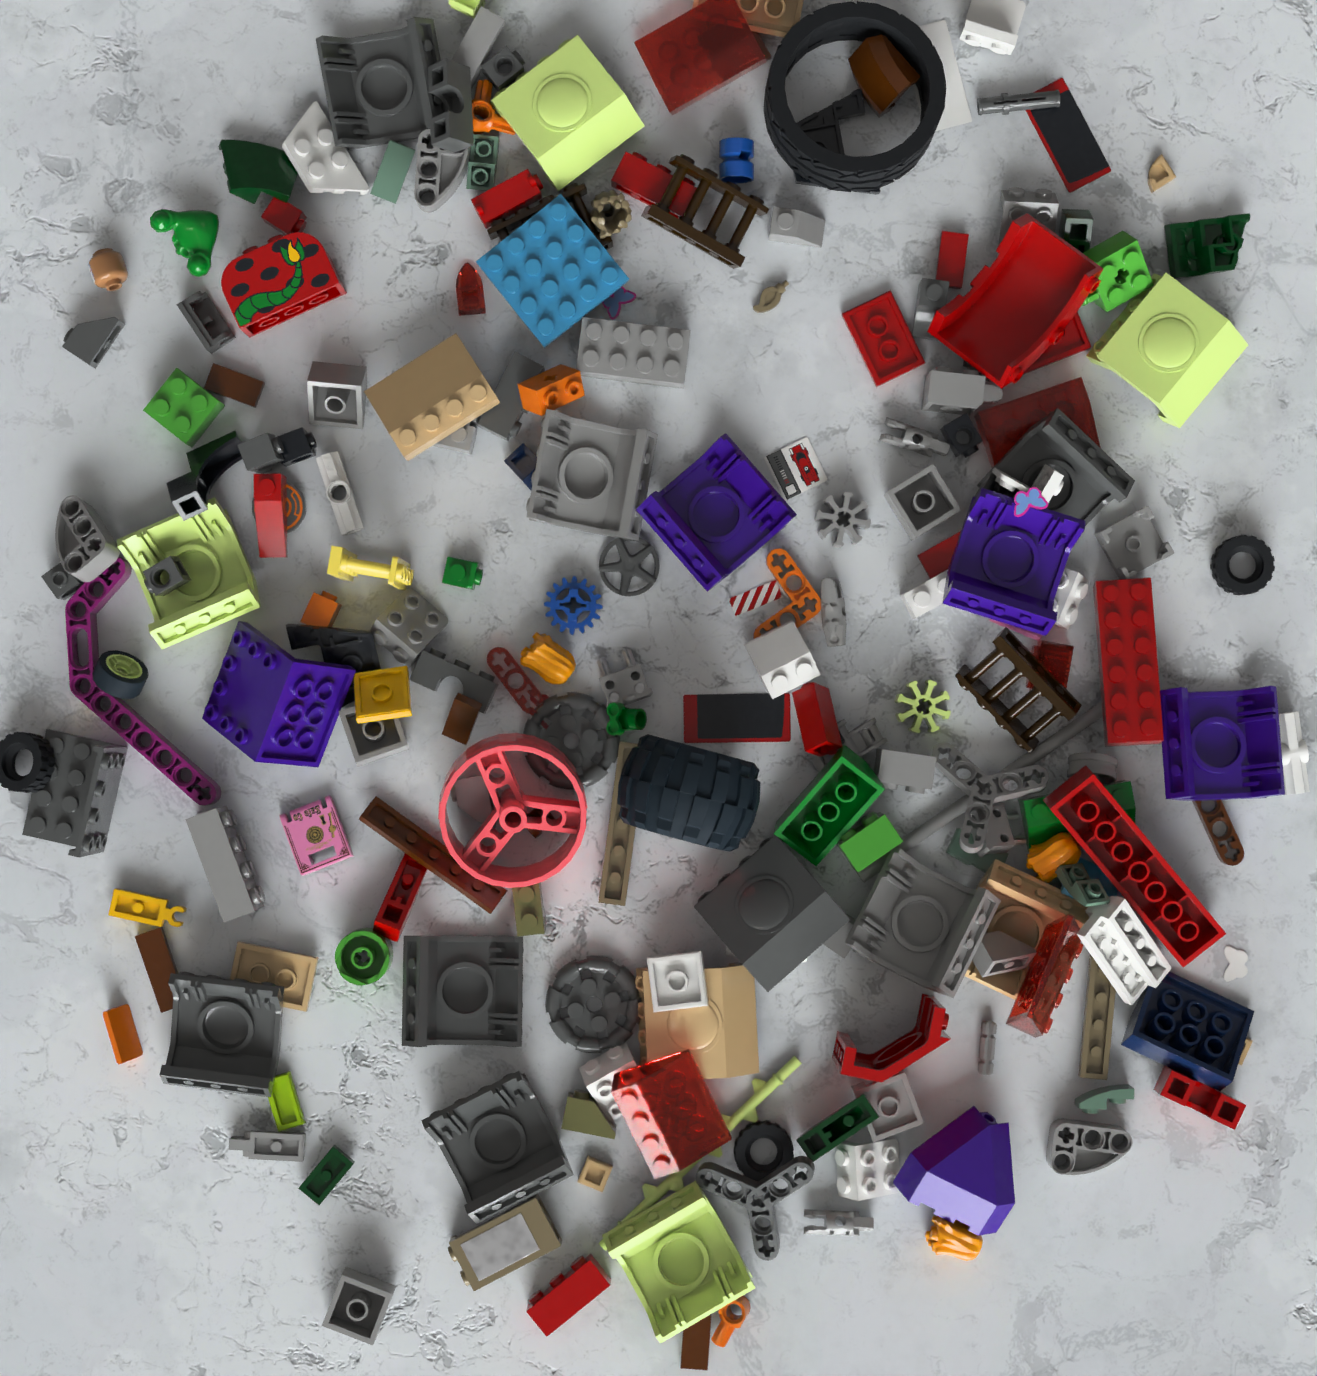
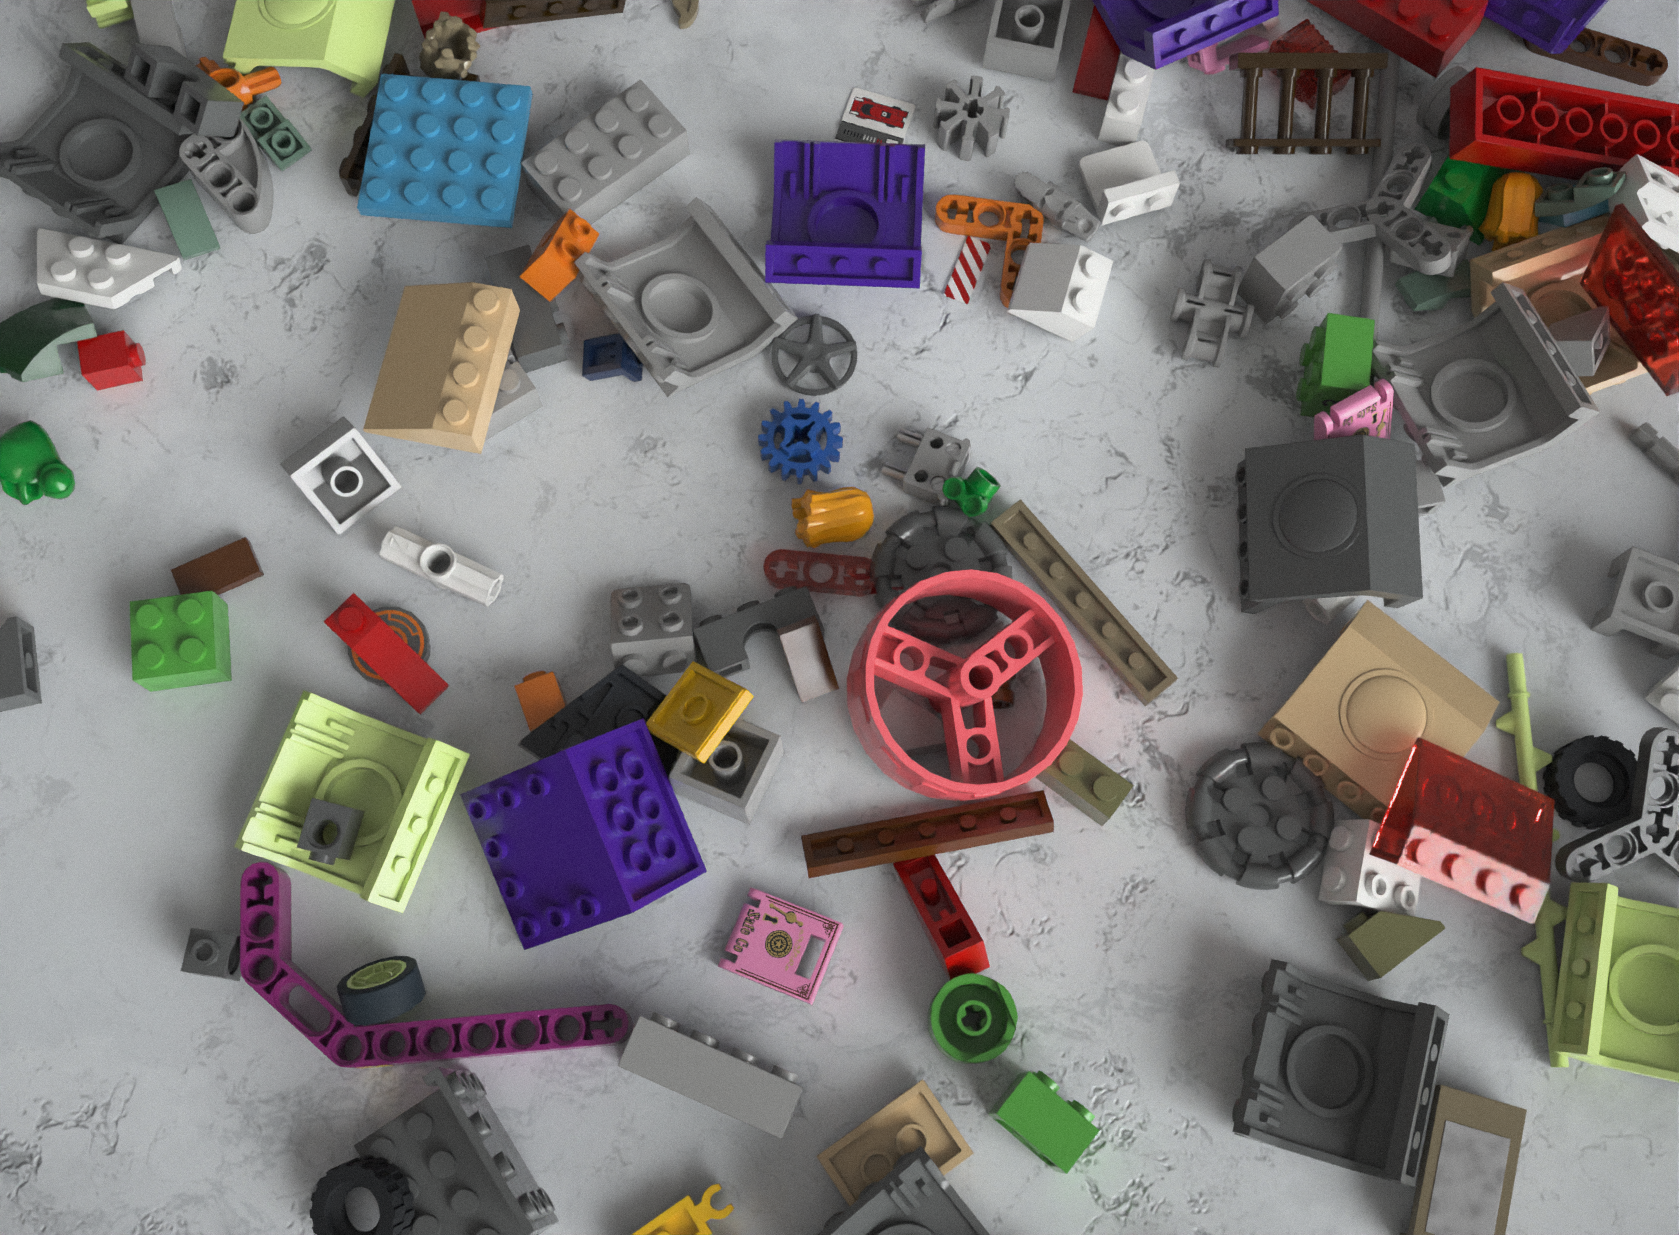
camera: 55 degrees left, 15 degrees down
(83, 540) = (195, 884): light grey beam -> none
(206, 321) = (121, 538): dark grey hinge -> none
(207, 463) = (265, 674): black arch -> none
(261, 453) = (311, 591): dark grey arch -> none
(279, 281) = (166, 414): red brick -> none
(297, 446) = (344, 566): black brick -> none
(345, 566) = (551, 586): light yellow fence -> none
(347, 1030) = (1045, 1122): none -> bright green brick
(462, 573) = (654, 522): green bracket -> none
(462, 990) = (1117, 941): dark grey panel -> none
(469, 291) = (383, 256): clear red plate -> none
(499, 79) = (207, 32): dark grey brick -> none
(508, 197) = (330, 138): red brick -> none
(567, 1294) = (1590, 1160): red brick -> none
(595, 1173) = (1461, 996): tan tile -> none
(614, 301) = (538, 133): medium blue sticker -> none
(677, 981) = (1323, 685): white tile -> none
(688, 793) = (1123, 474): black wheel -> none
(736, 718) = (1075, 395): black sticker -> none
(817, 719) = (1158, 304): red brick -> none
(829, 805) = (1263, 365): green slope -> none
(837, 1127) = (1638, 671): dark green slope -> none
(840, 881) = (1360, 414): none -> bright pink container
(883, 635) = (1127, 182): none -> white bracket
(900, 1053) = (1616, 492): red panel -> none
(929, 709) = (1235, 206): yellowish green gear -> none

